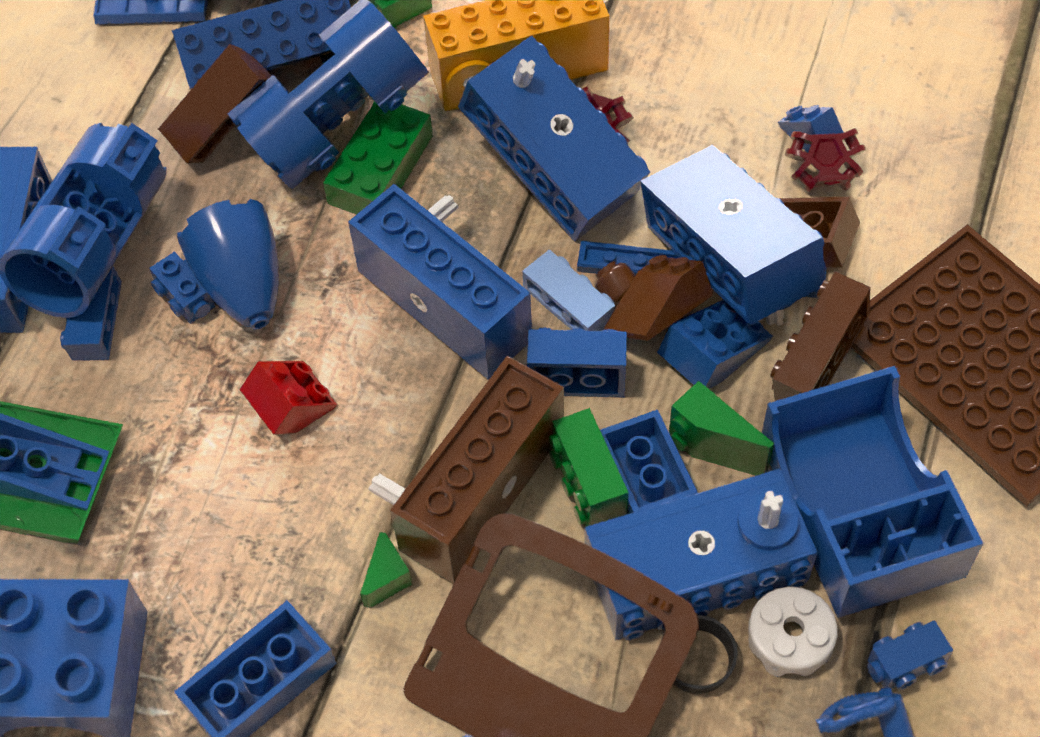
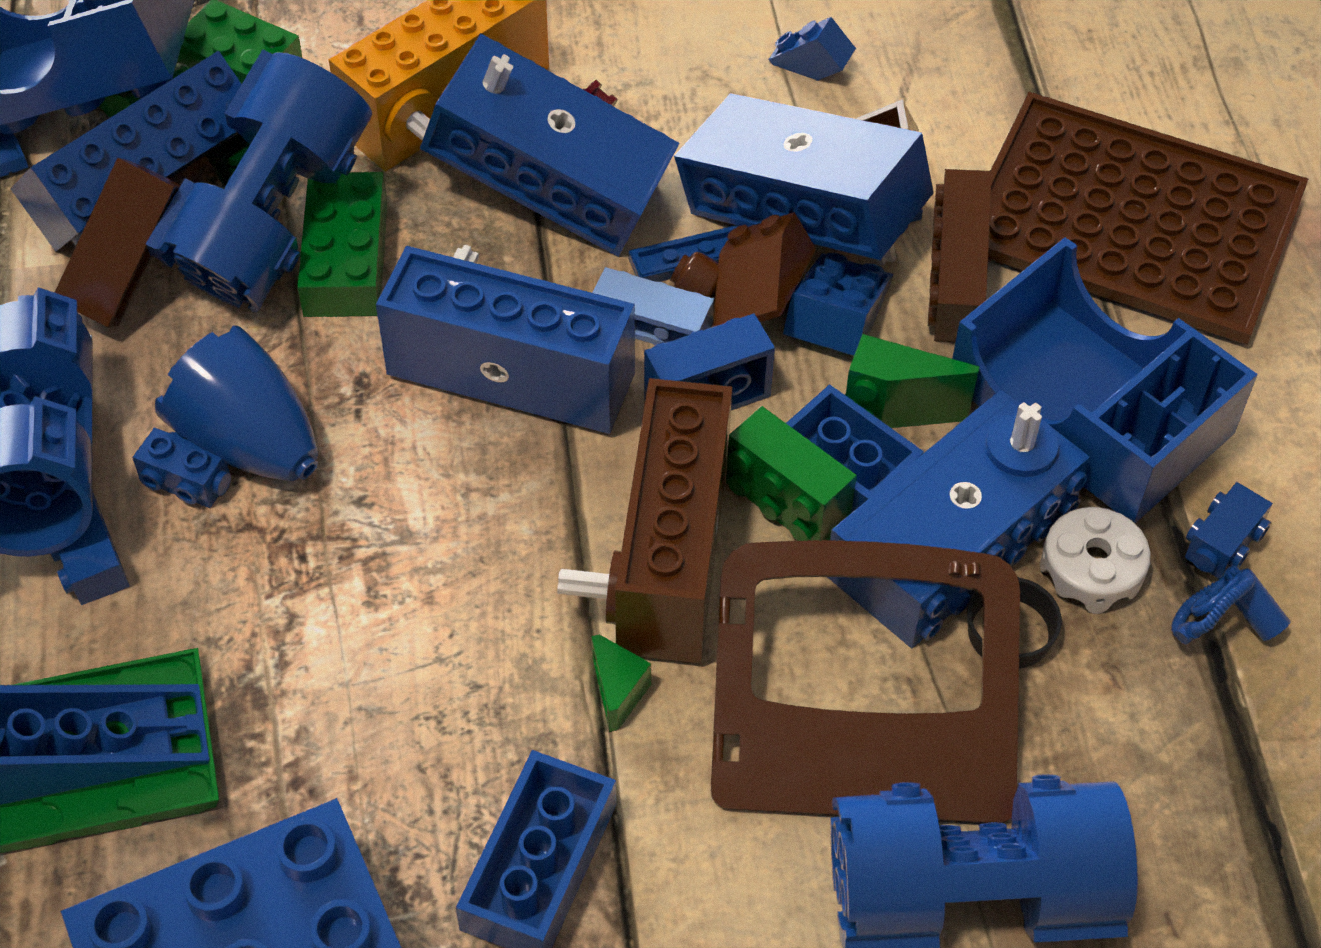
camera: 30 degrees left, 5 degrees down
(286, 395) = (385, 537): red slope -> none
(827, 156) = (849, 68): dark red piece -> none

